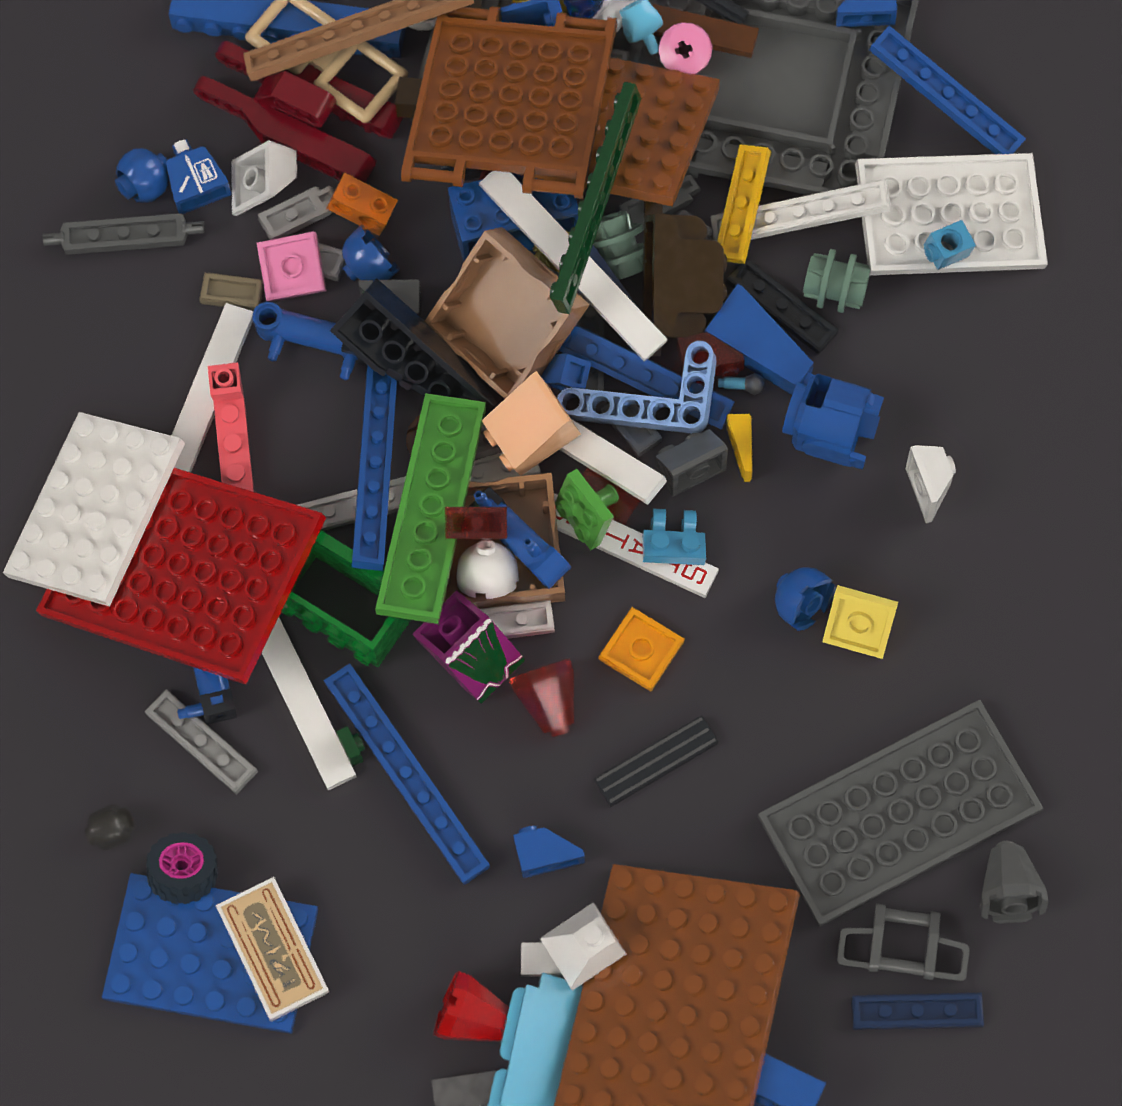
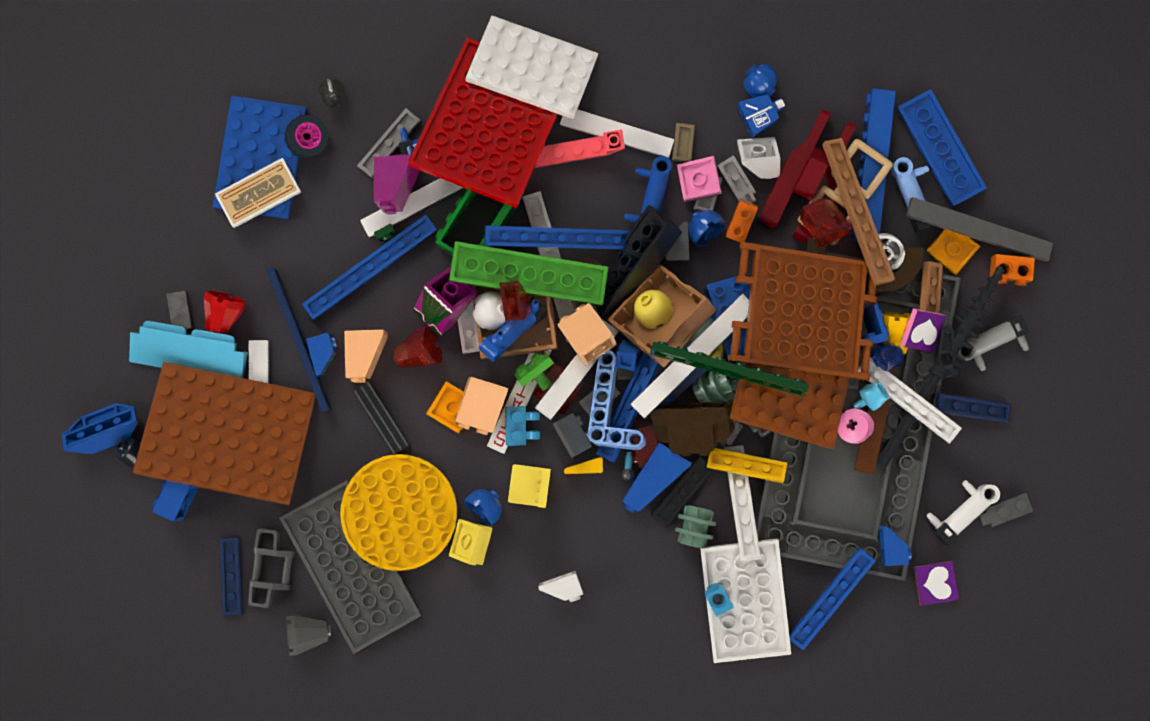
camera: 85 degrees right, 15 degrees up
(123, 233) = (719, 72): dark grey plate -> none
(267, 725) = (393, 182): none -> magenta slope
(373, 79) = (824, 221): none -> clear red slope
(495, 330) = (653, 309): none -> light yellow cylinder
(522, 889) = (298, 339): none -> dark blue tile
(549, 779) = (363, 353): none -> light nougat slope
(582, 946) = (262, 376): white slope -> none
(639, 595) = (480, 405): none -> light nougat slope
(770, 526) = (529, 485): none -> light yellow bracket
(812, 732) = (398, 512): none -> yellow tile
(830, 418) = (599, 522): blue piece -> none

